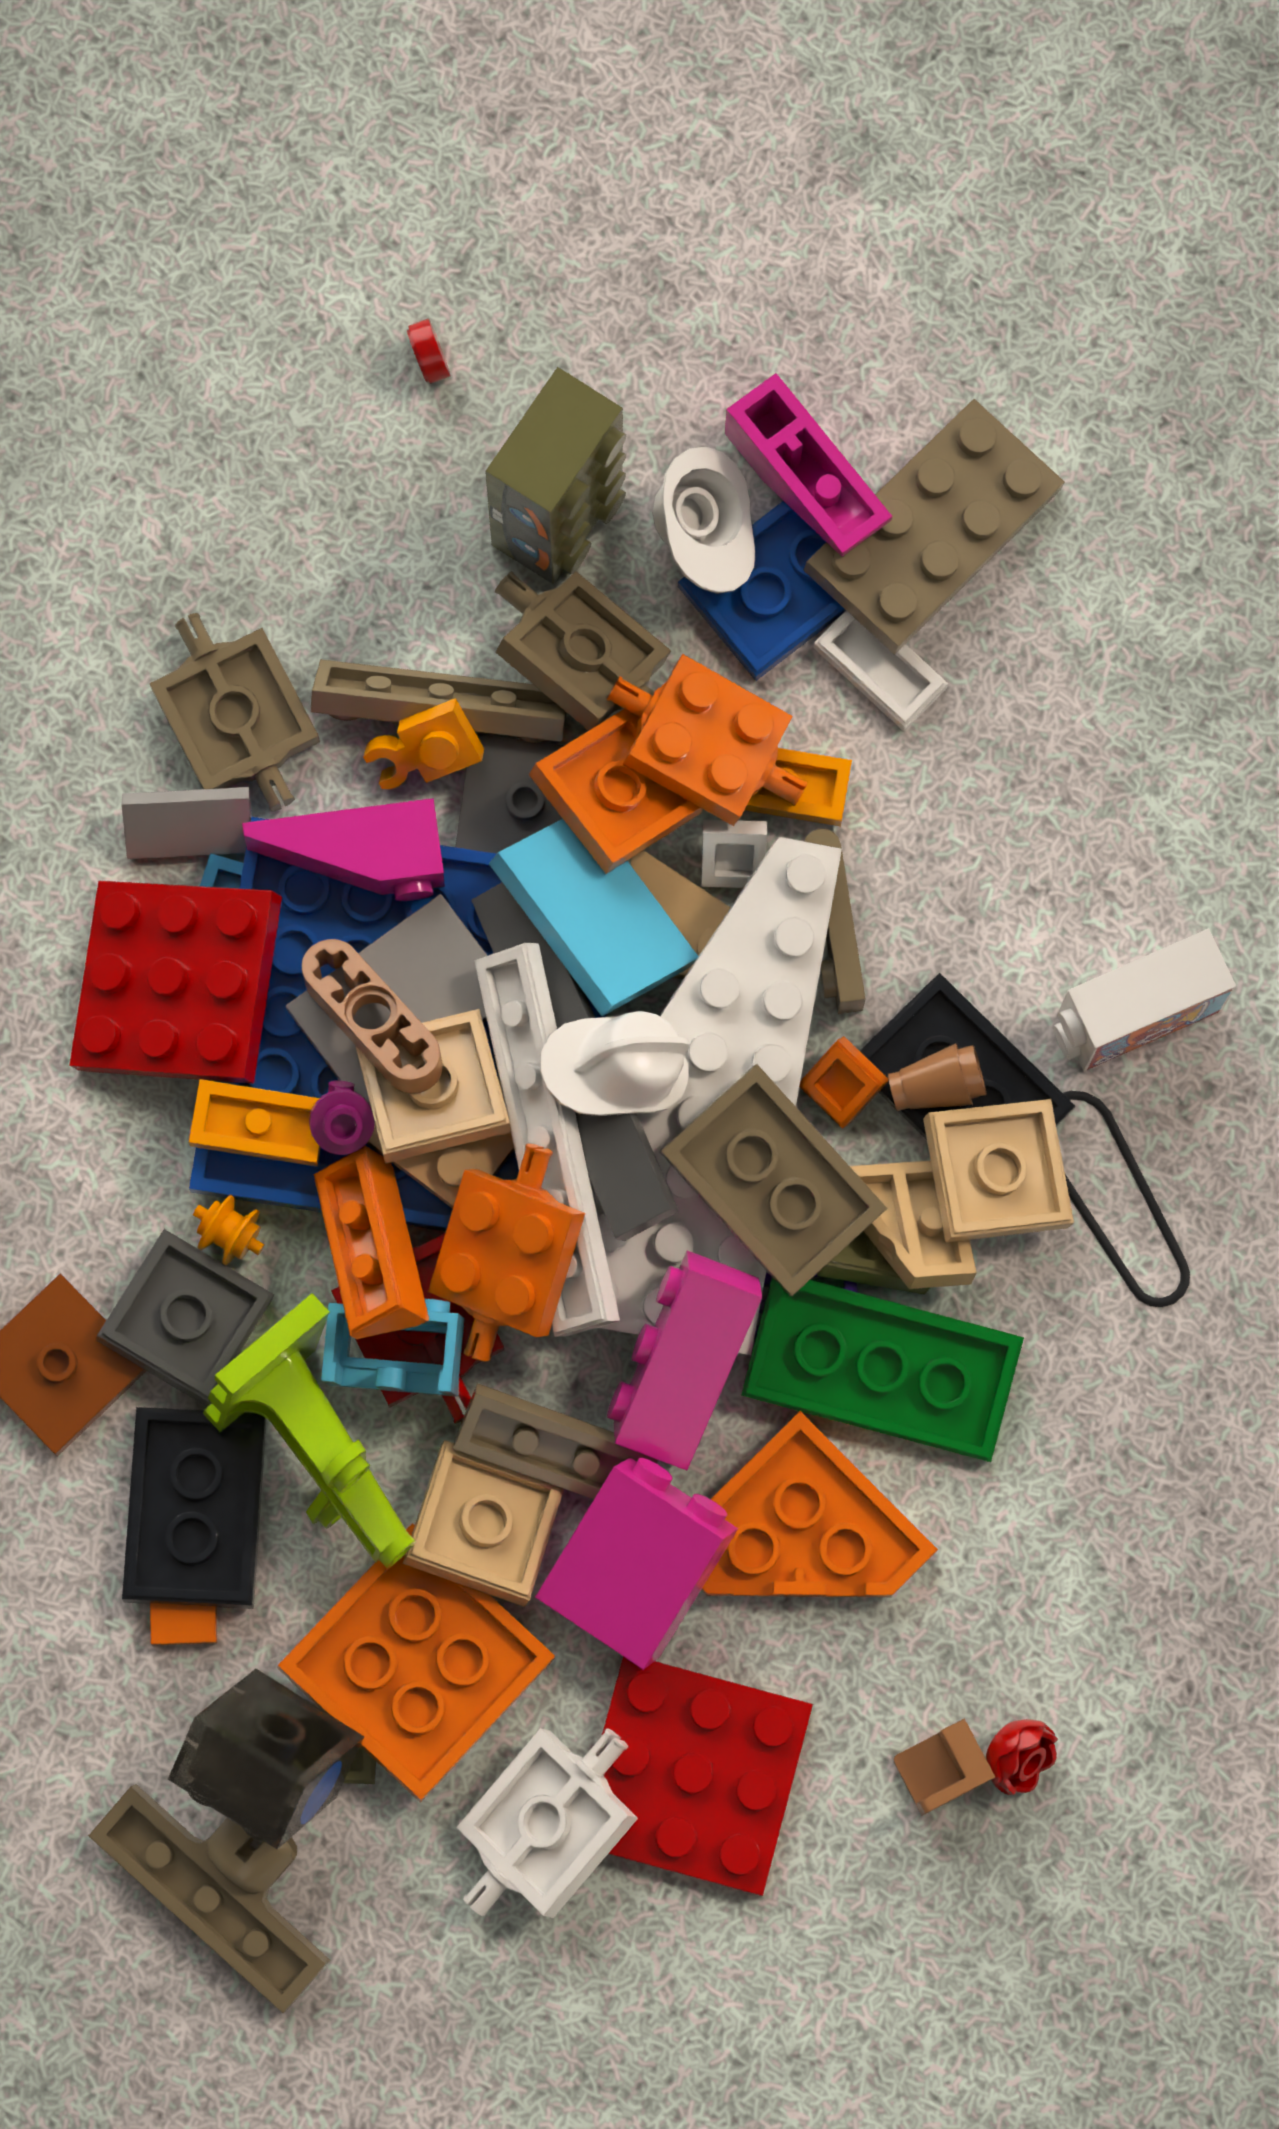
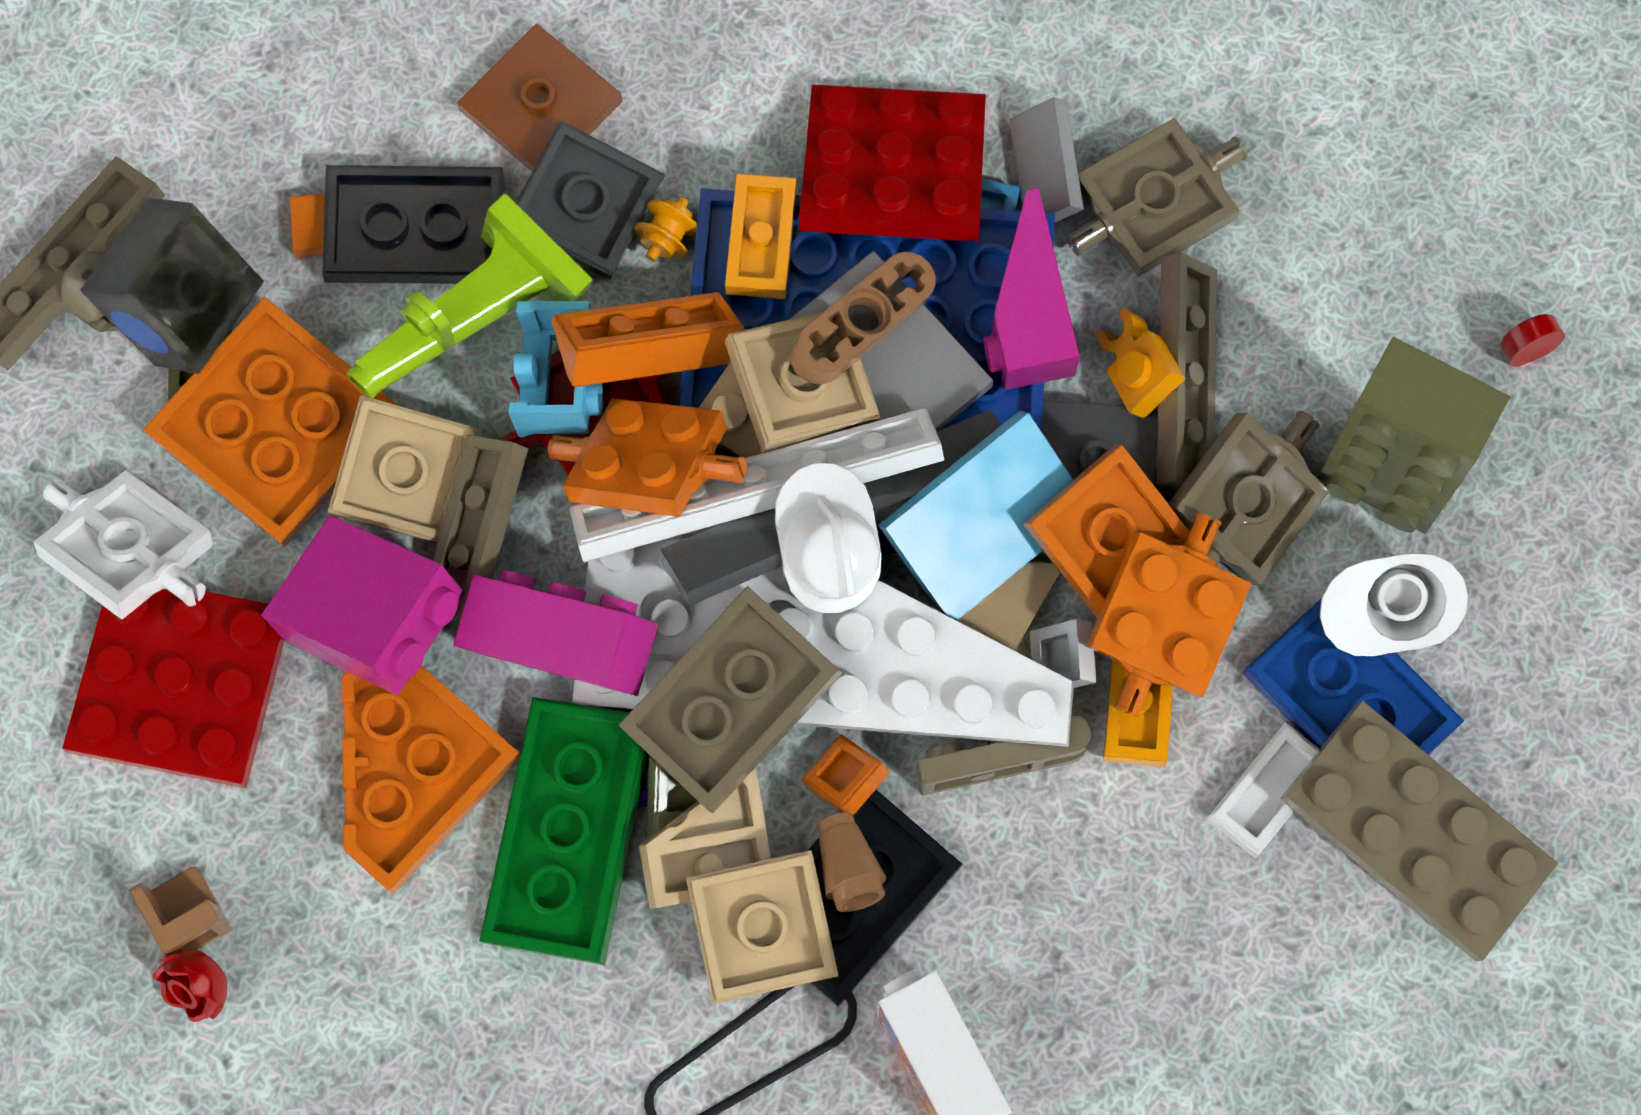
camera: 90 degrees right, 5 degrees down
(341, 1119) = (765, 300): magenta plate -> none
(803, 465) = (1460, 691): dark pink slope -> none

